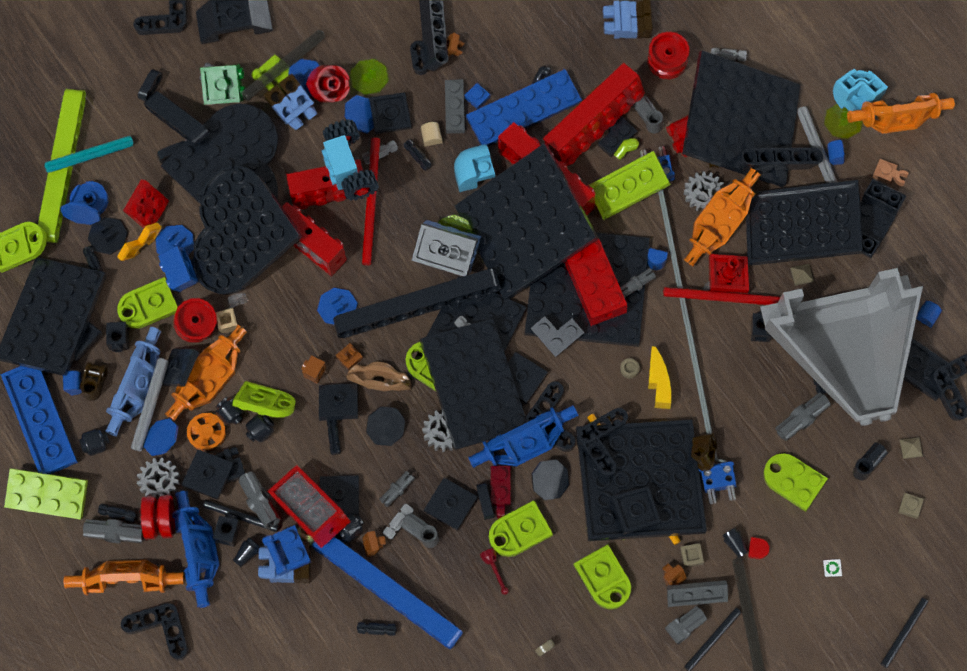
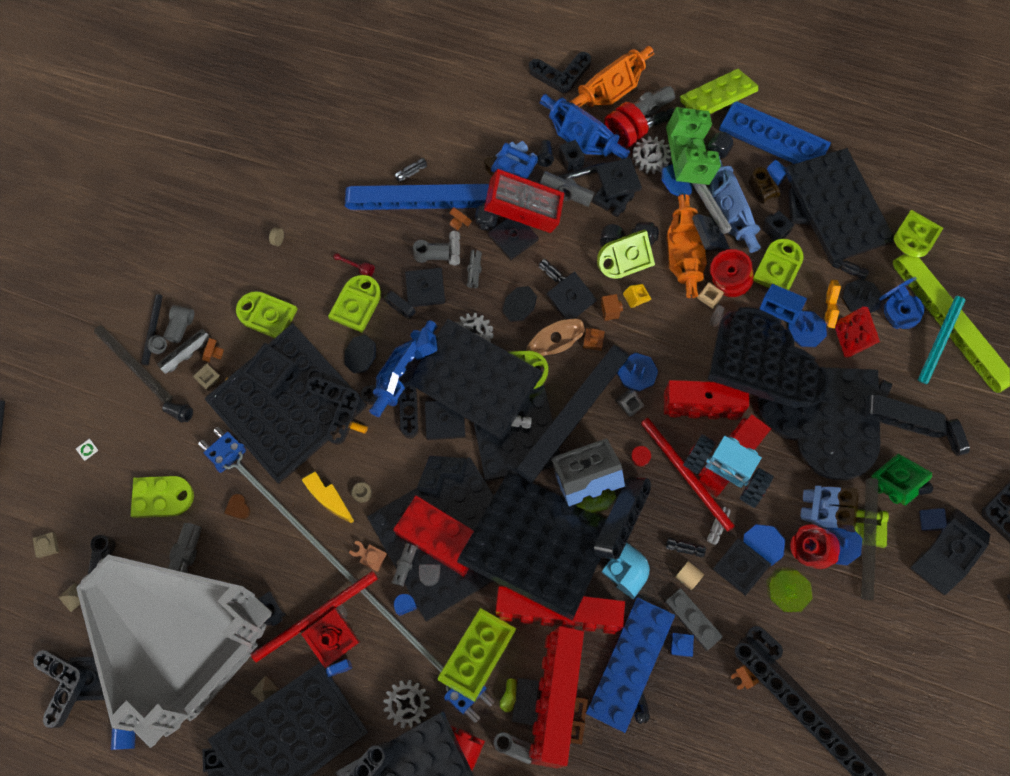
camera: 140 degrees right, 0 degrees up
(115, 470) = (687, 146): none -> bright green plate
(206, 432) = (649, 210): orange piece -> none
(224, 47) = (933, 519): none -> dark blue slope
(282, 367) = (636, 295): none -> yellow slope
(365, 287) = (630, 402): none -> dark grey slope
(392, 240) = (640, 456): none -> red tile
(448, 197) = (622, 518): none -> black beam
(489, 436) = (426, 342): none -> blue slope
(500, 489) = (394, 323): dark red plate -> none
(622, 264) = (429, 574): none -> clear tile
(657, 314) = (371, 557): none -> nougat plate
(704, 451) = (248, 461): dark brown piece -> none
(716, 617) = (157, 344): none -> dark grey plate
(721, 217) = (371, 686): orange plate -> none
(735, 247) = (339, 667): none -> blue tile
(736, 426) = (237, 507): none -> reddish brown tile
(758, 548) = (157, 420): red tile -> none

